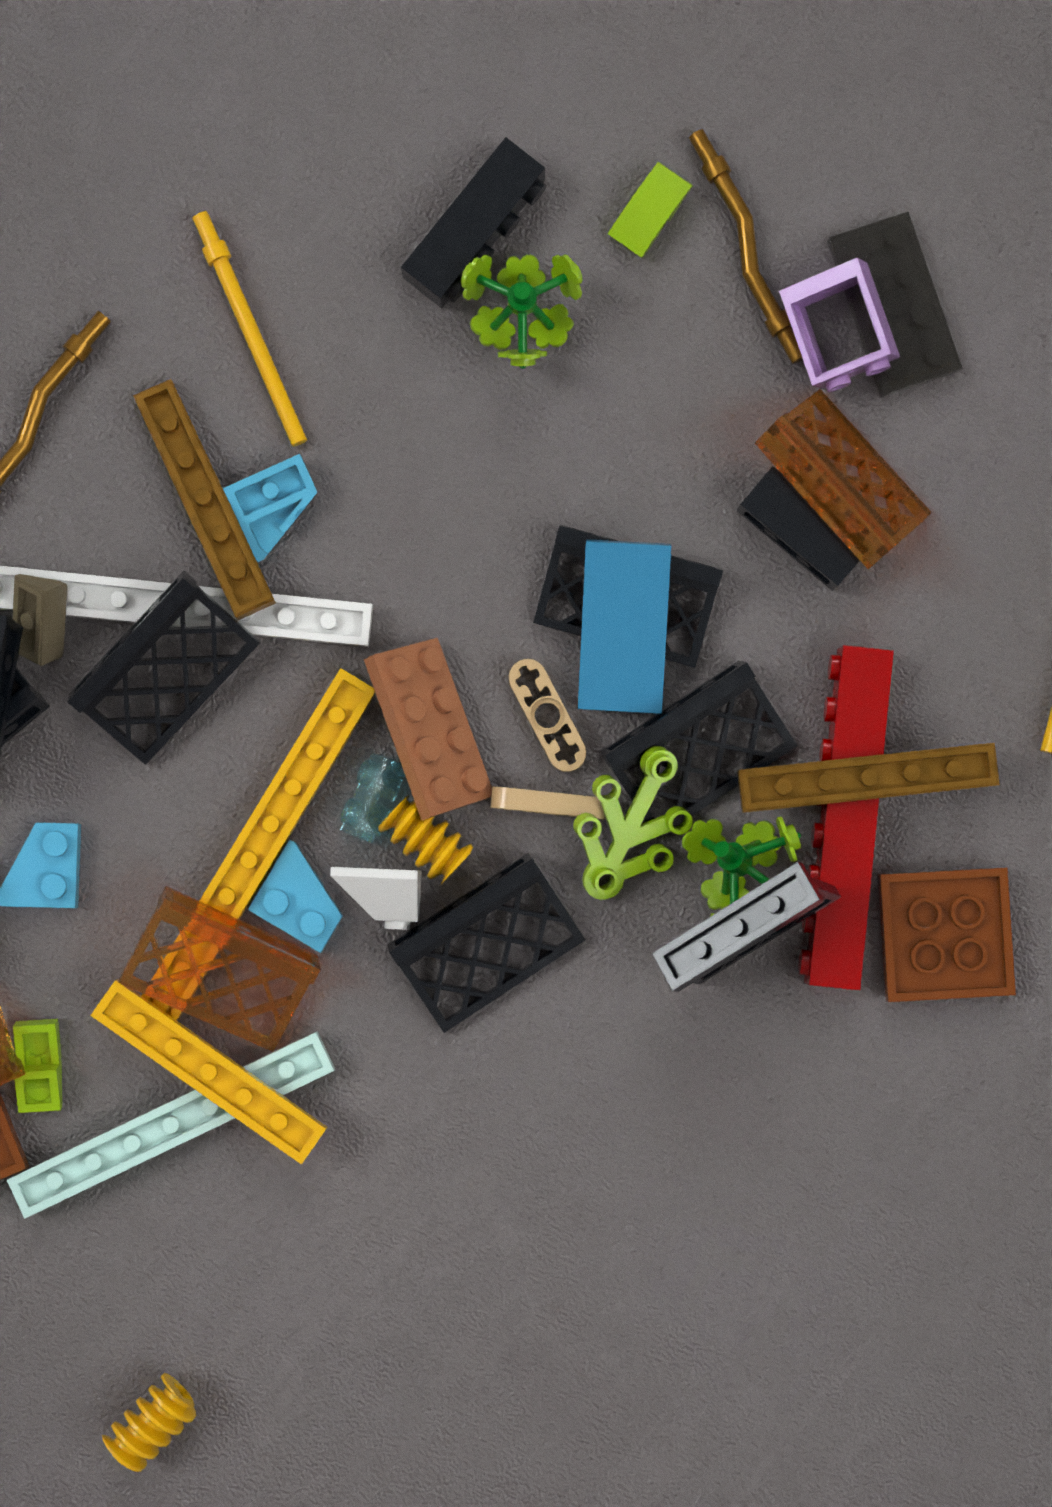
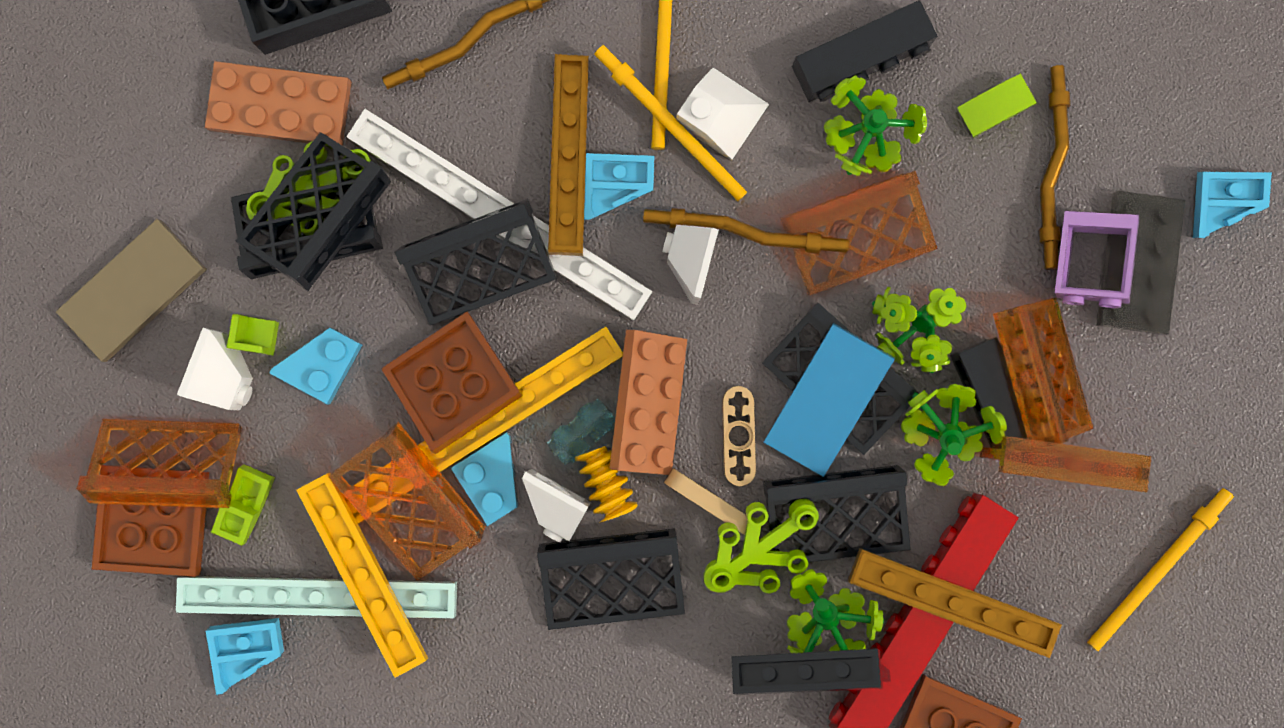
camera: 25 degrees right, 0 degrees up
(41, 610) = (409, 178): dark tan slope -> none
(118, 1223) = (242, 649): none -> medium azure wing
(201, 814) = (451, 382): none -> dark orange plate
(222, 381) = (624, 76): none -> yellow bar
(350, 369) = (721, 113): none -> white slope
(394, 545) = (690, 257): none -> white slope
(520, 463) = (811, 242): none -> pearl gold bar
(543, 399) = (859, 202): none -> clear orange fence
(648, 497) = (941, 311): none -> lime plant
(789, 599) = (954, 436): none -> lime plant
(915, 562) = (1071, 463): none -> clear orange fence
(954, 186) = (1227, 198): none -> medium azure wing

